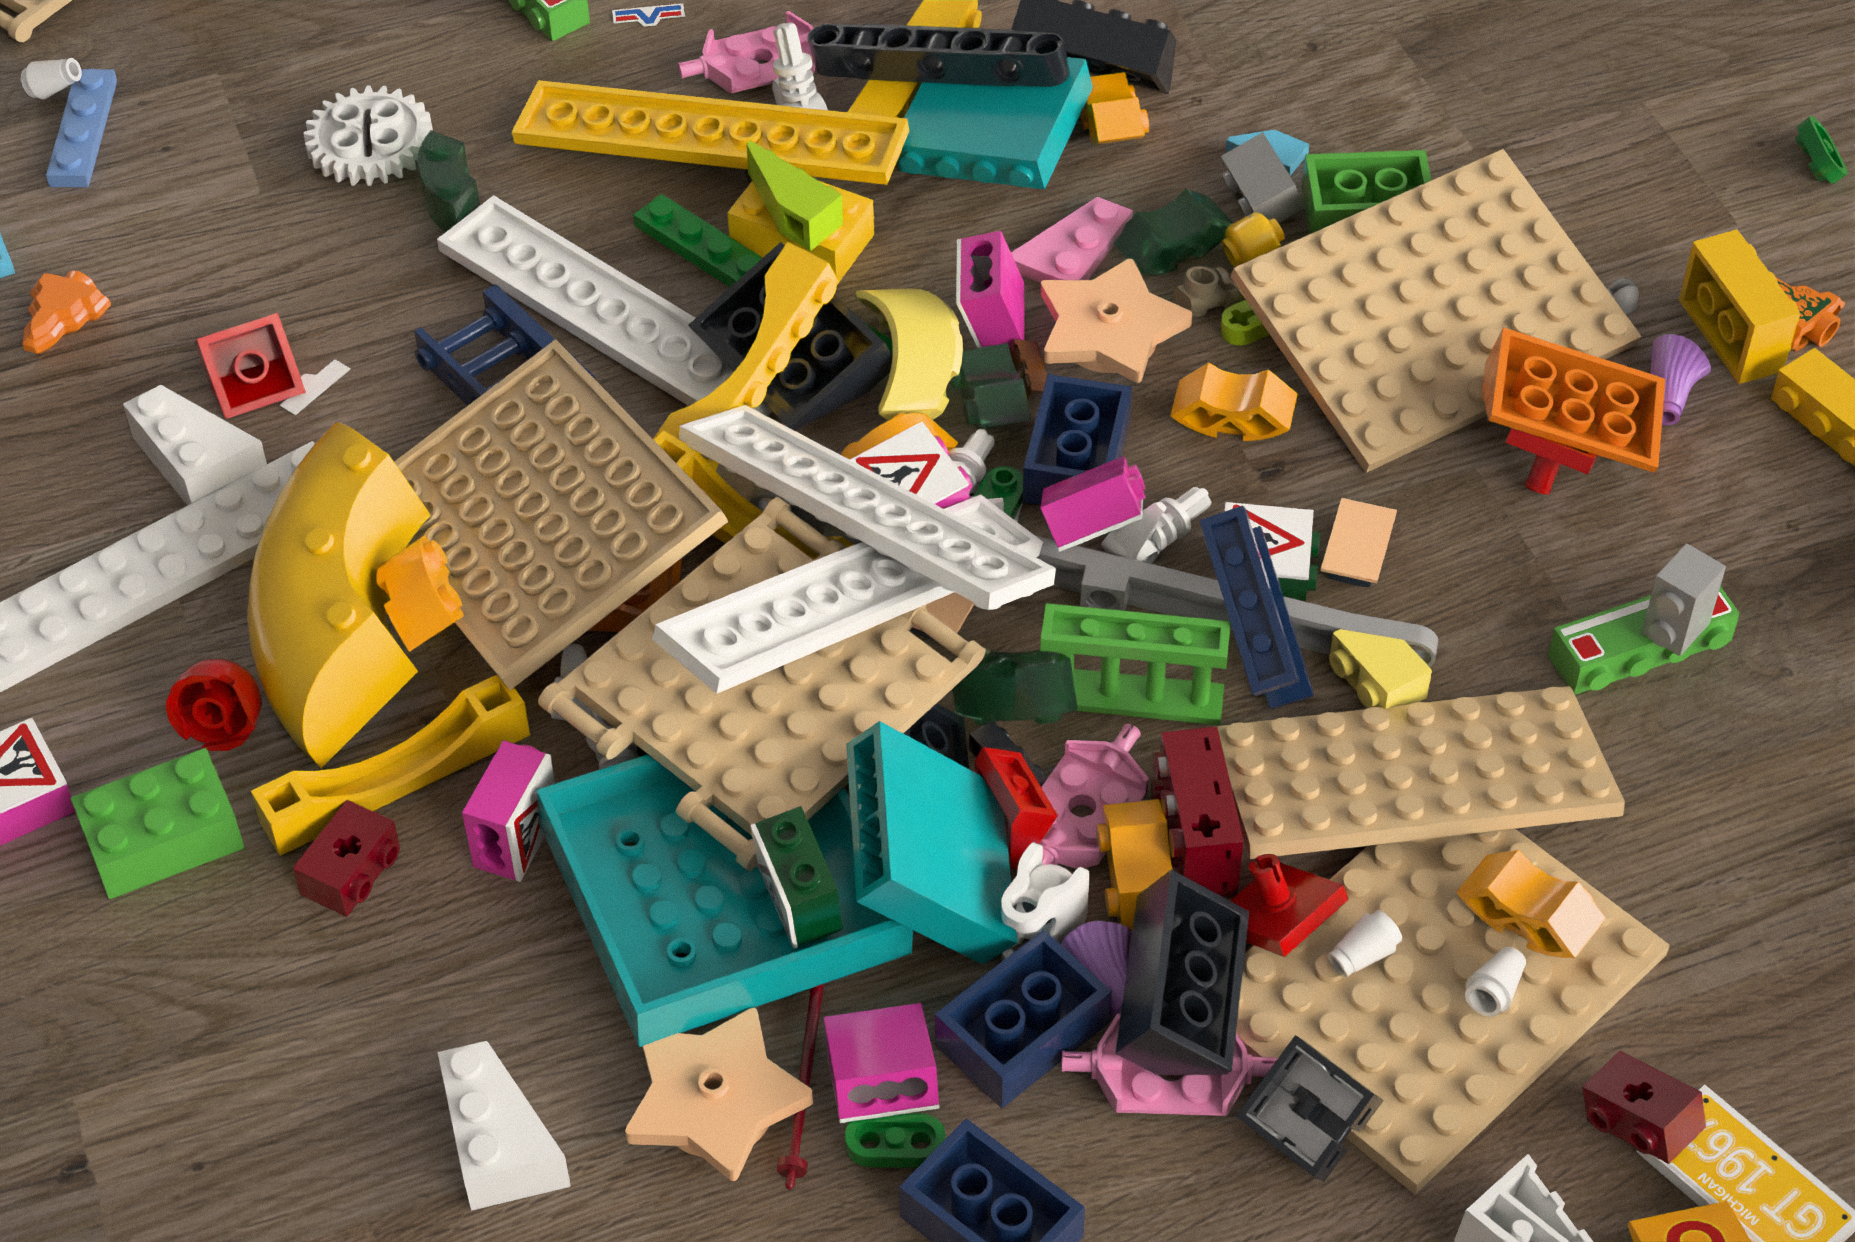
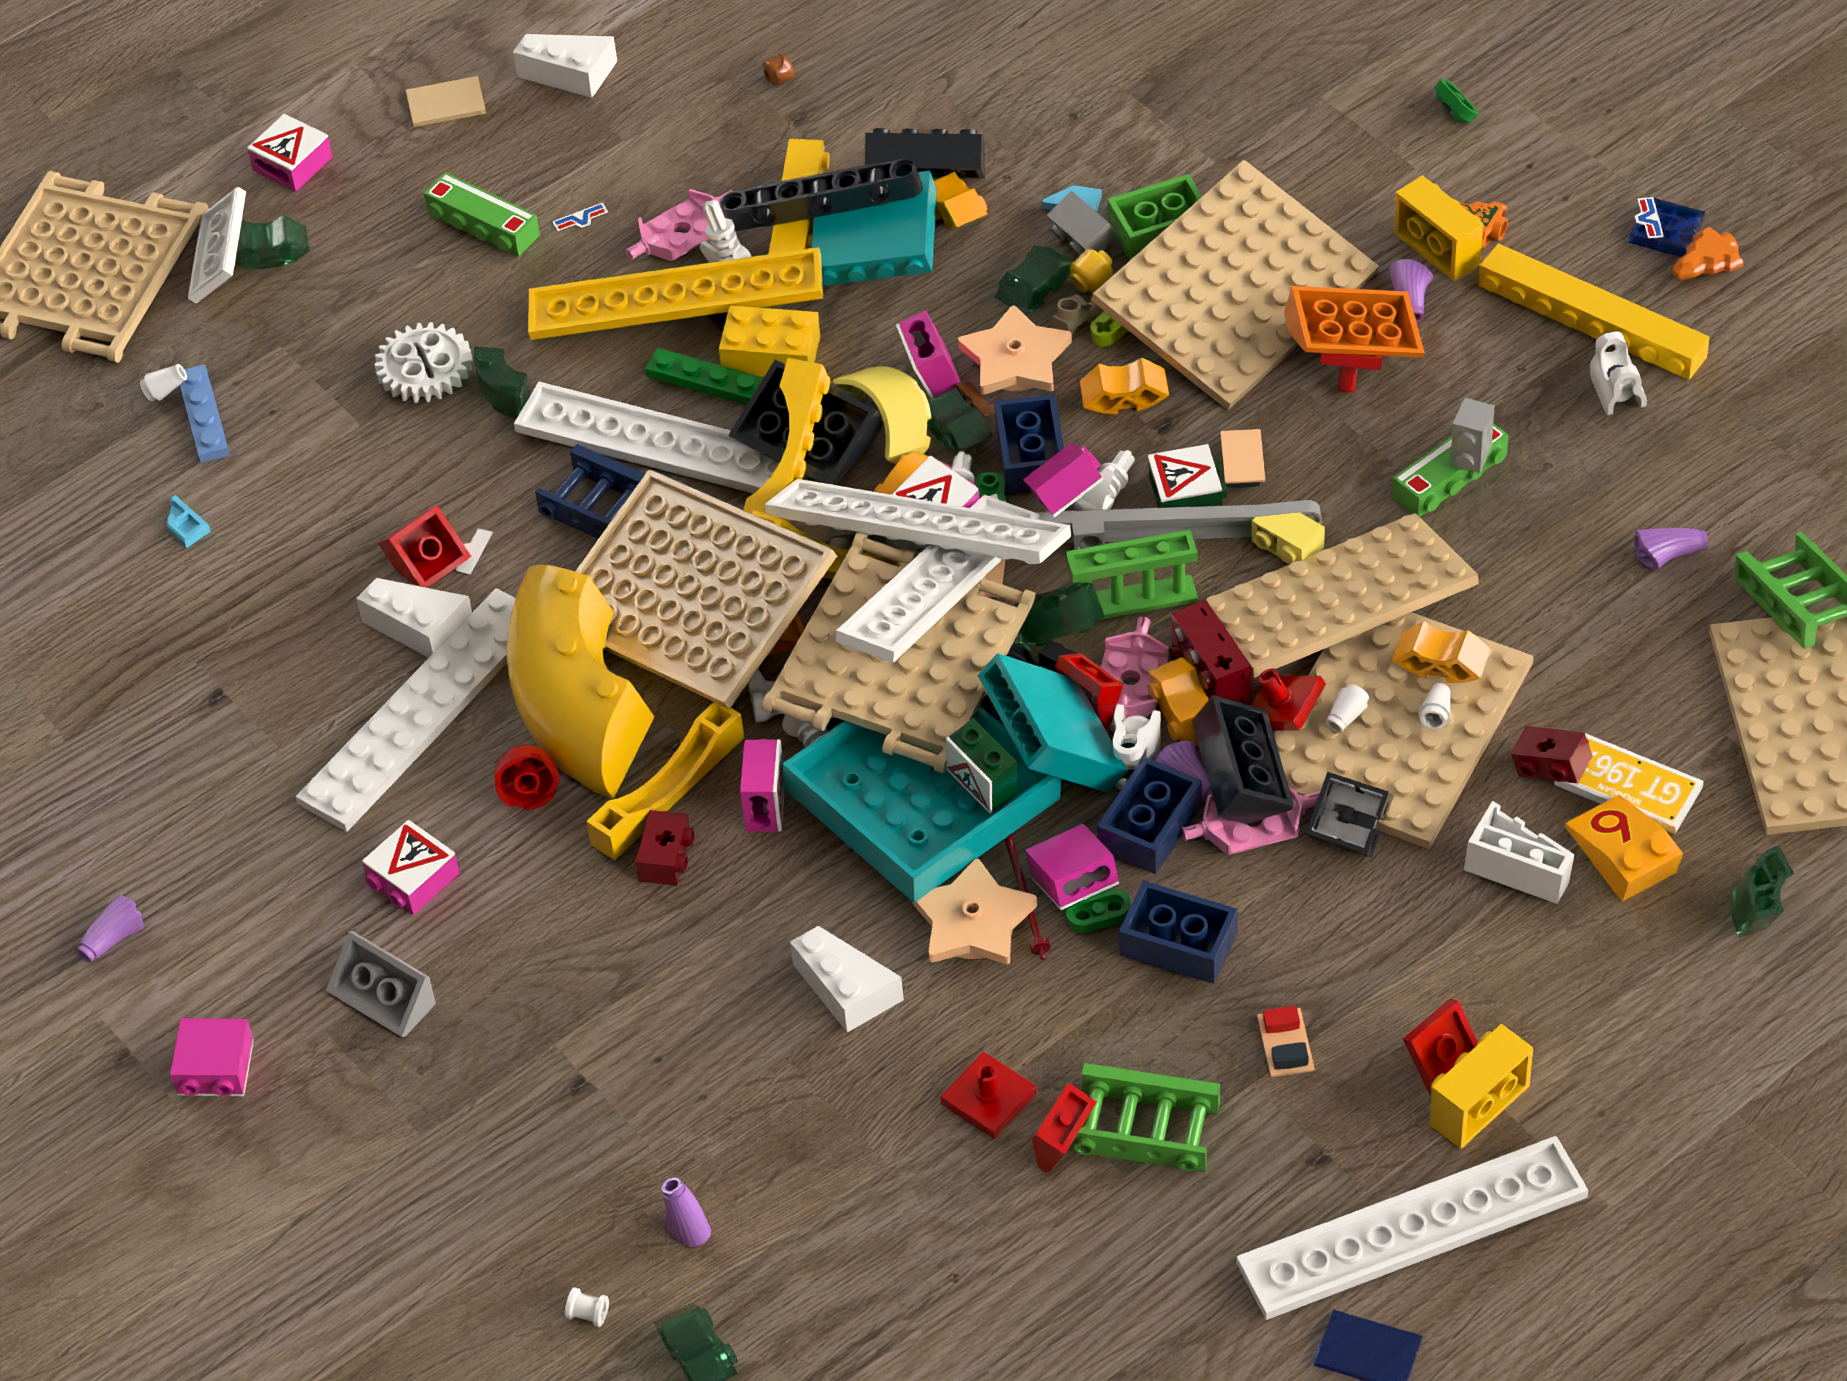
camera: 15 degrees left, 0 degrees up
(61, 308) = (264, 545): orange rock -> none
(158, 823) = (525, 862): bright green brick -> none
(419, 592) = (639, 662): light orange brick -> none
(796, 201) = (768, 327): lime slope -> none
(1074, 244) = (967, 304): bright pink wing -> none
(1256, 608) = (1201, 517): dark blue fence -> none
(1625, 294) = (1357, 239): light grey hinge -> none

